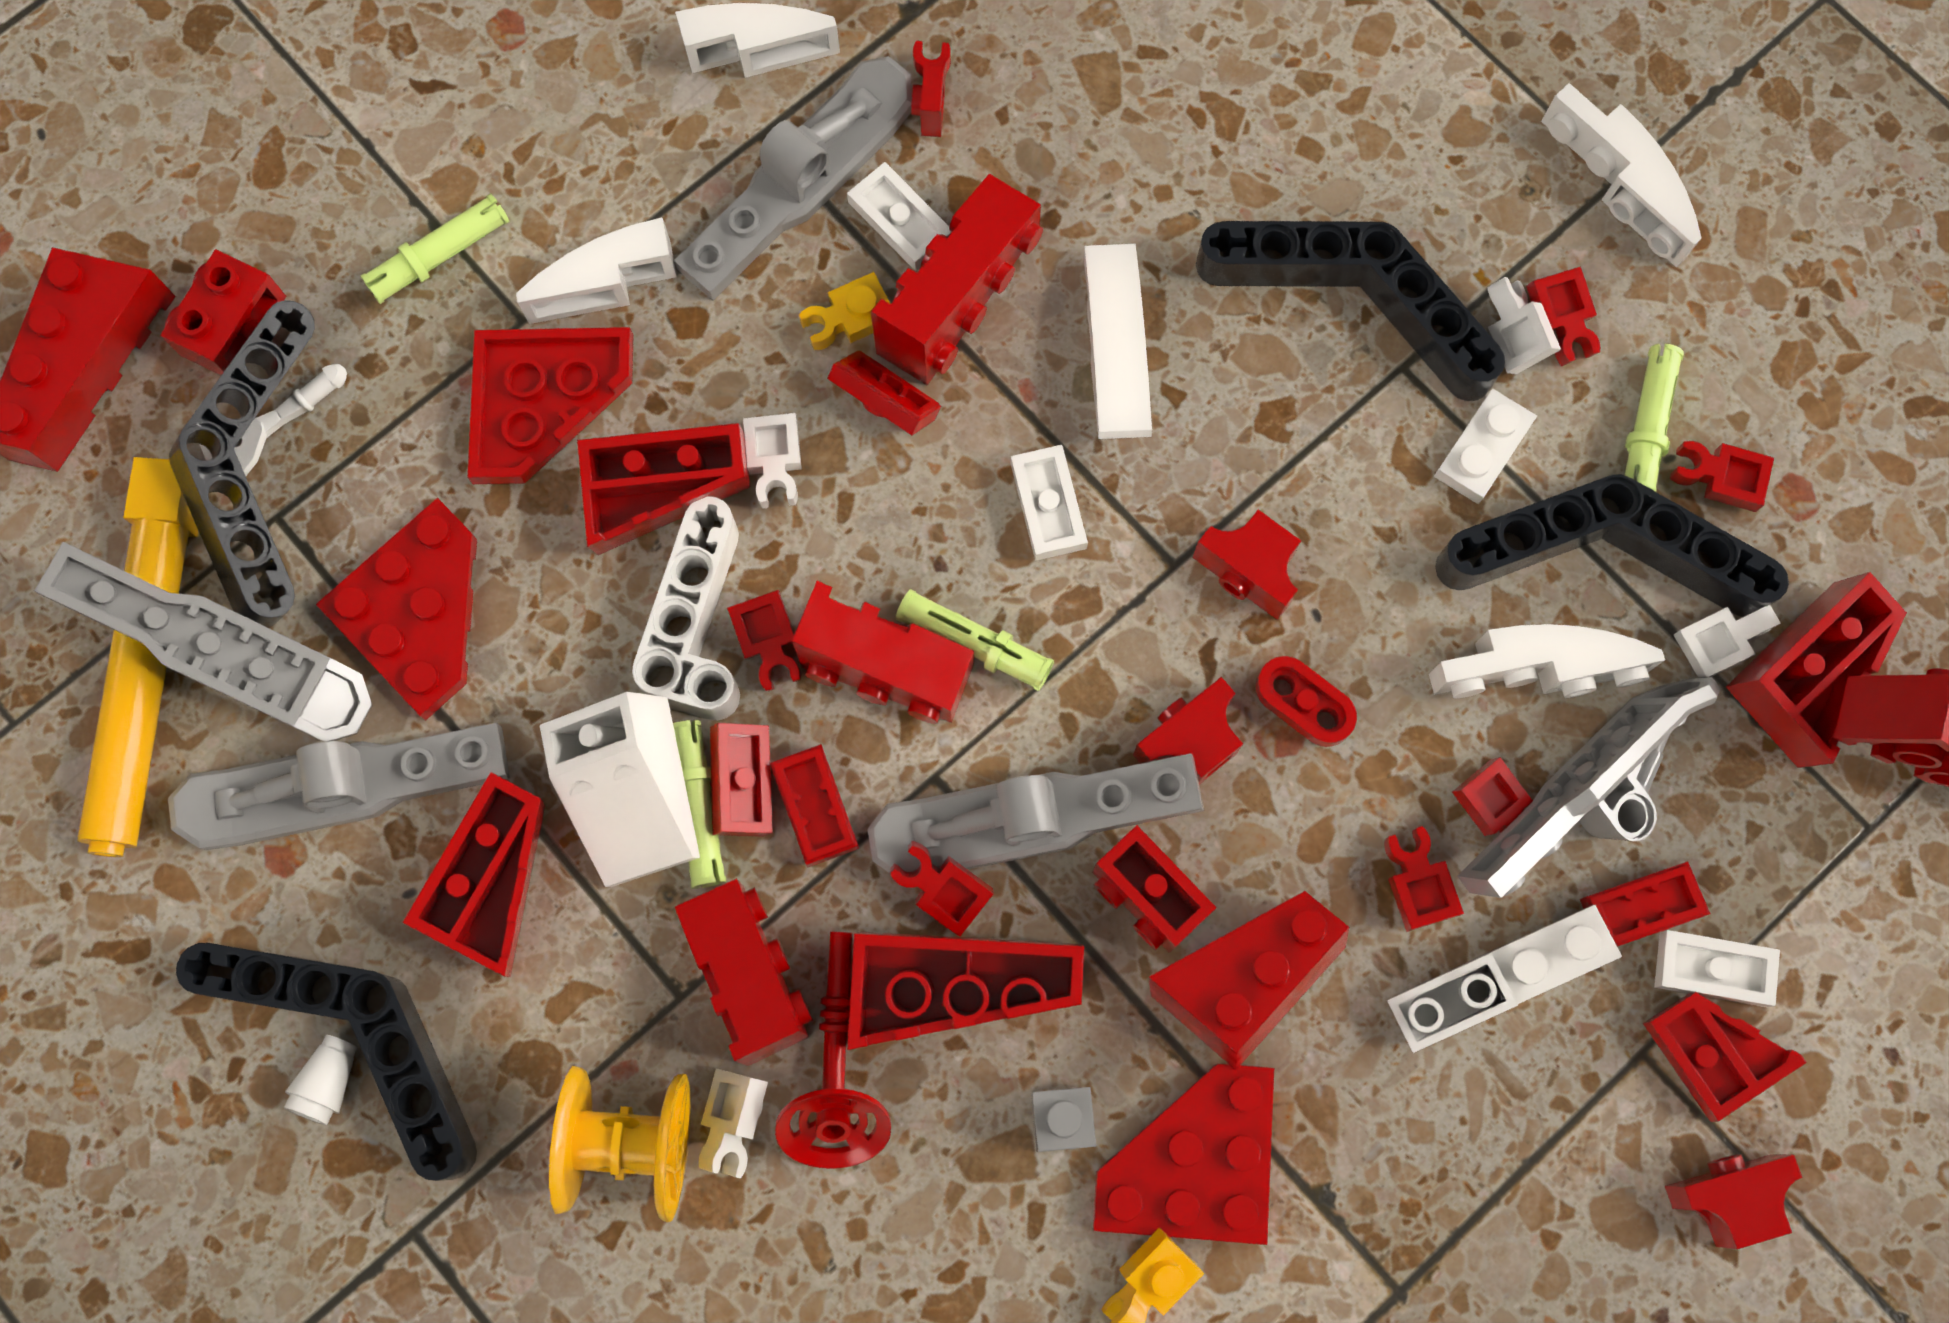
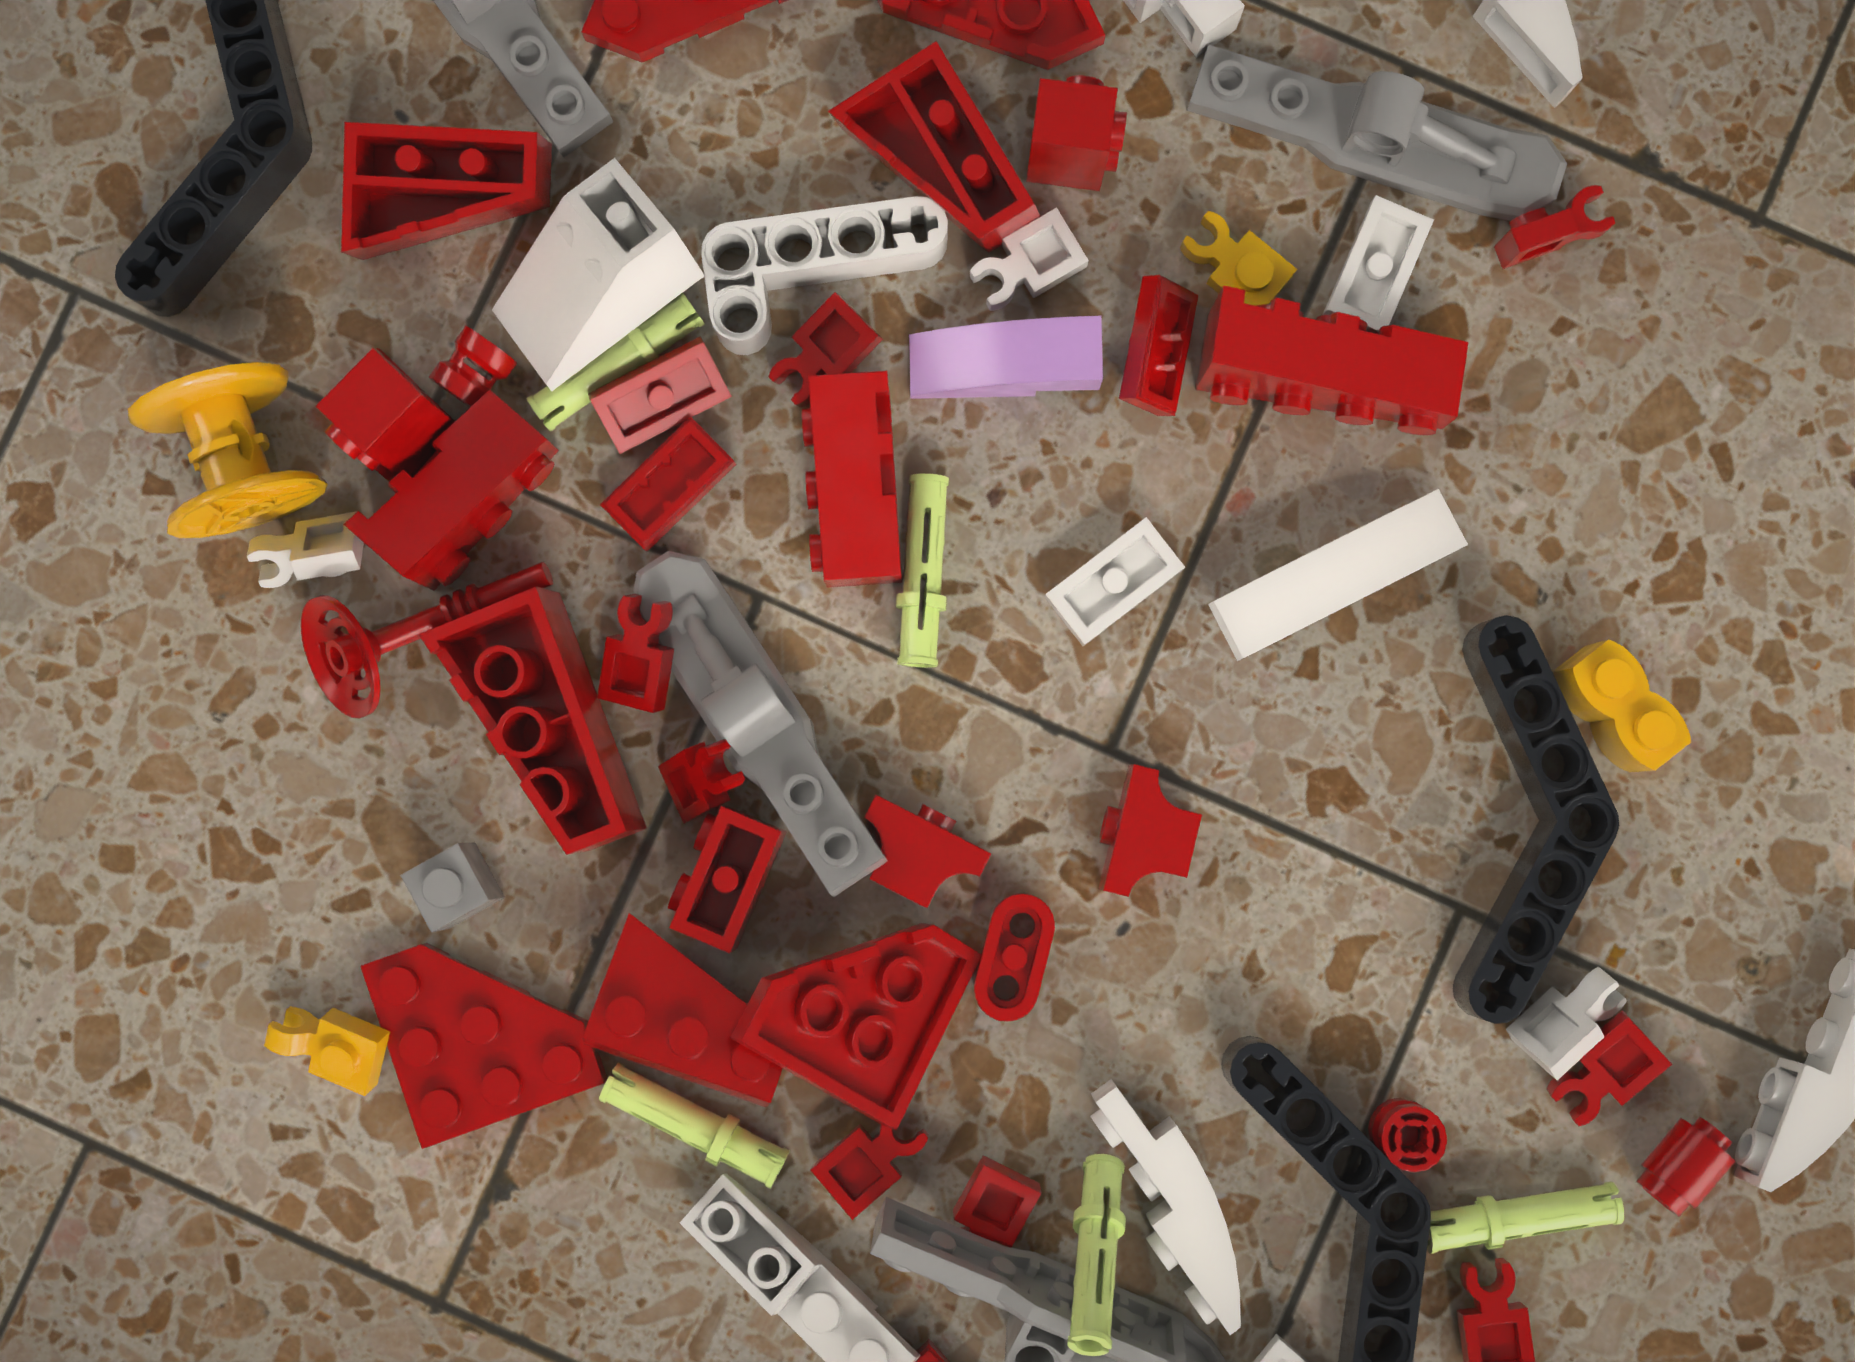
camera: 70 degrees right, 10 degrees up
(322, 1081) = (172, 125): white cone -> none
(647, 919) = (463, 380): none -> red wheel
(650, 996) = (383, 417): none -> red wedge
(695, 376) = (1075, 133): none -> red brick
(840, 503) = (1007, 358): none -> lavender slope
(1063, 879) = (699, 779): none -> red plate
(1305, 190) = (1625, 717): none -> yellow brick
(1309, 829) = (862, 1017): none -> red plate
(1336, 1010) = (694, 1125): none -> yellowish green pin
(1485, 446) = (1406, 1039): white plate -> none
(1545, 722) = (1098, 1230): none -> yellowish green pin
(1548, 479) = (1397, 1125): none -> red wheel
(1658, 291) = (1686, 1165): none -> red brick

